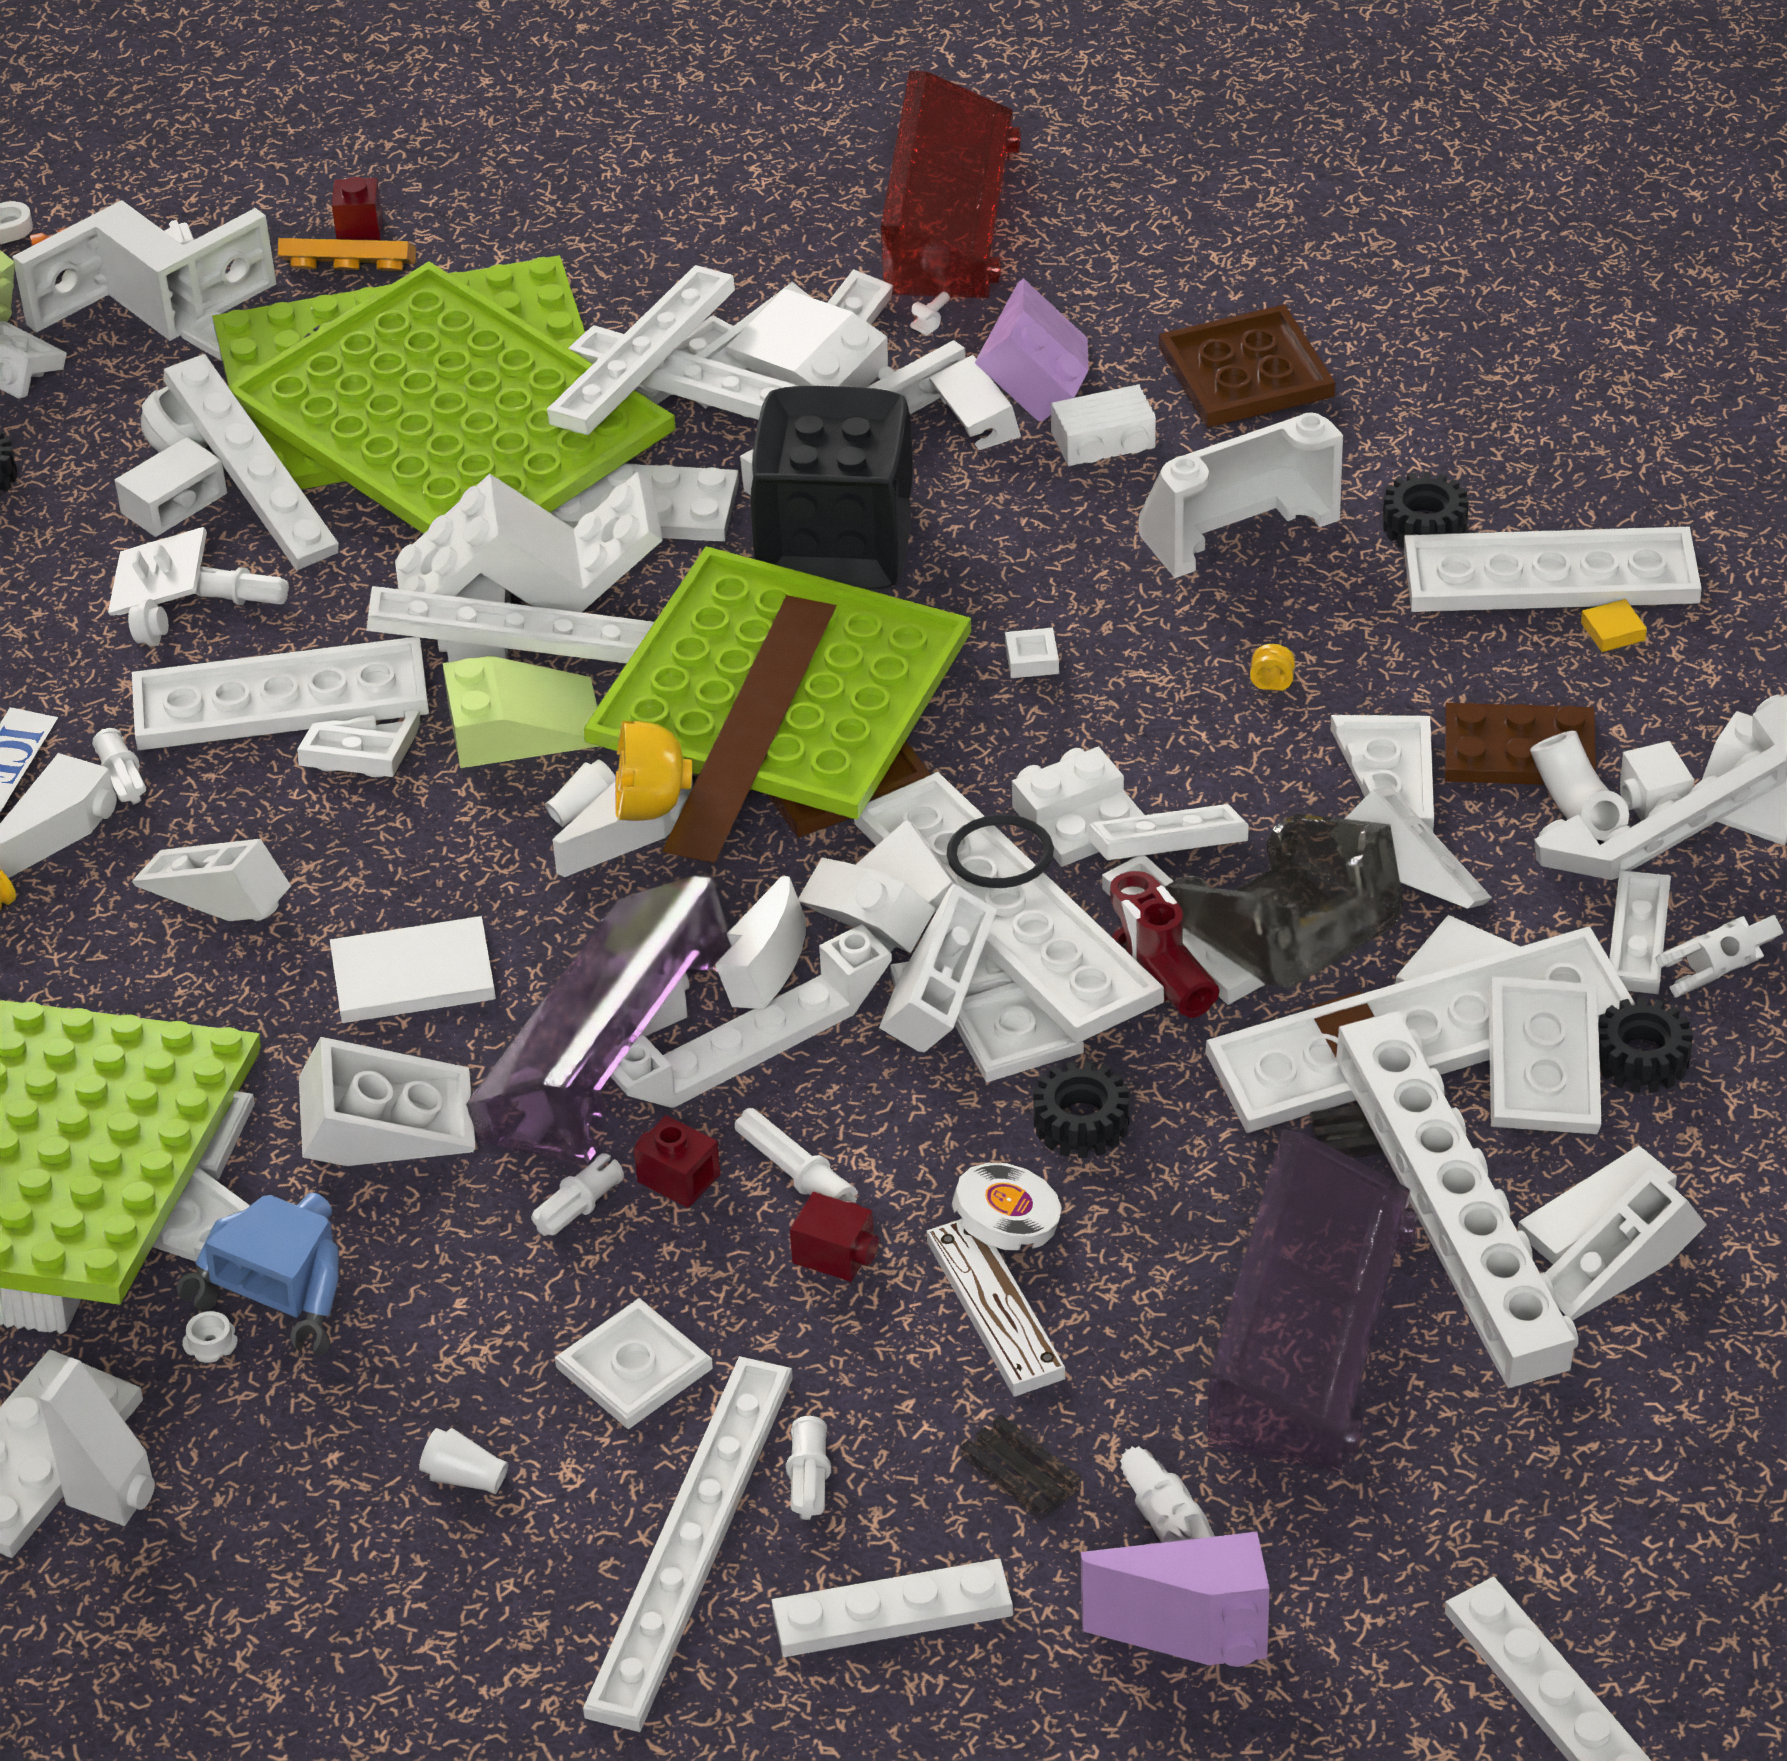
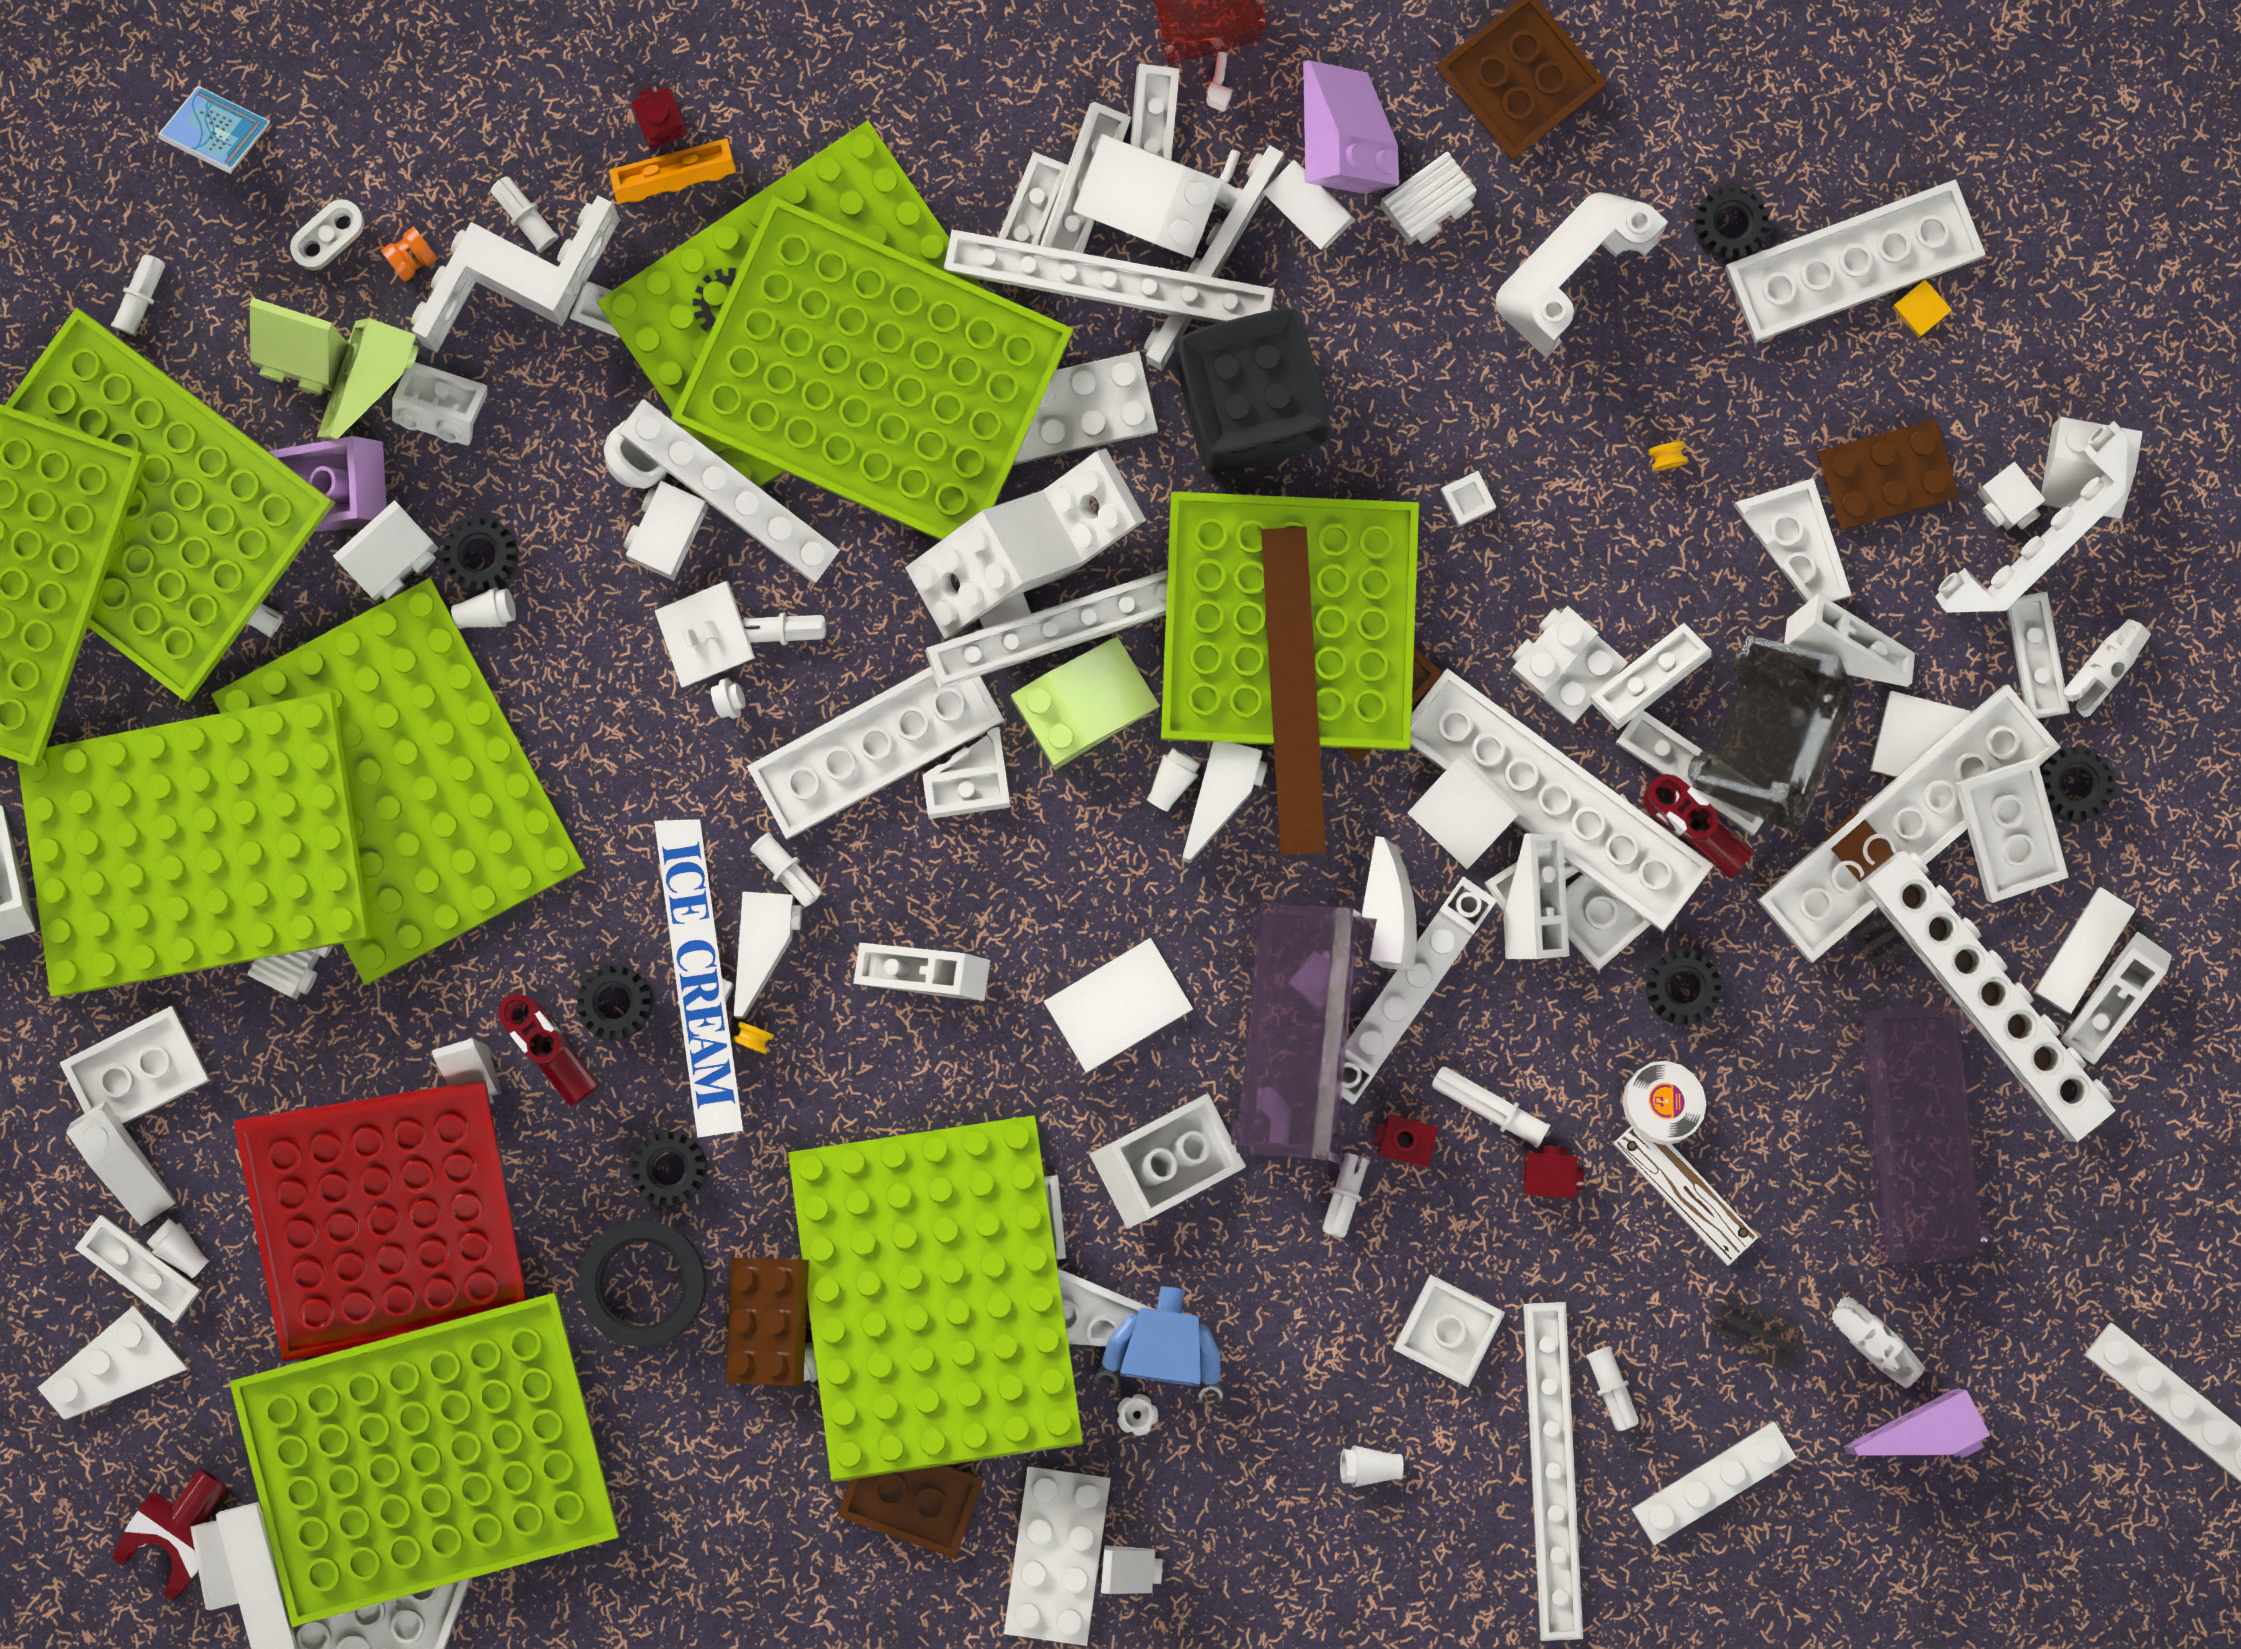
camera: 20 degrees left, 40 degrees up
(640, 350) = (1020, 269): white plate -> none
(649, 771) = (1243, 789): yellow cylinder -> none
(868, 898) = (1448, 842): white slope -> none
(1006, 882) = (1534, 714): black tyre -> none
(1577, 786) = (1957, 530): white cylinder -> none

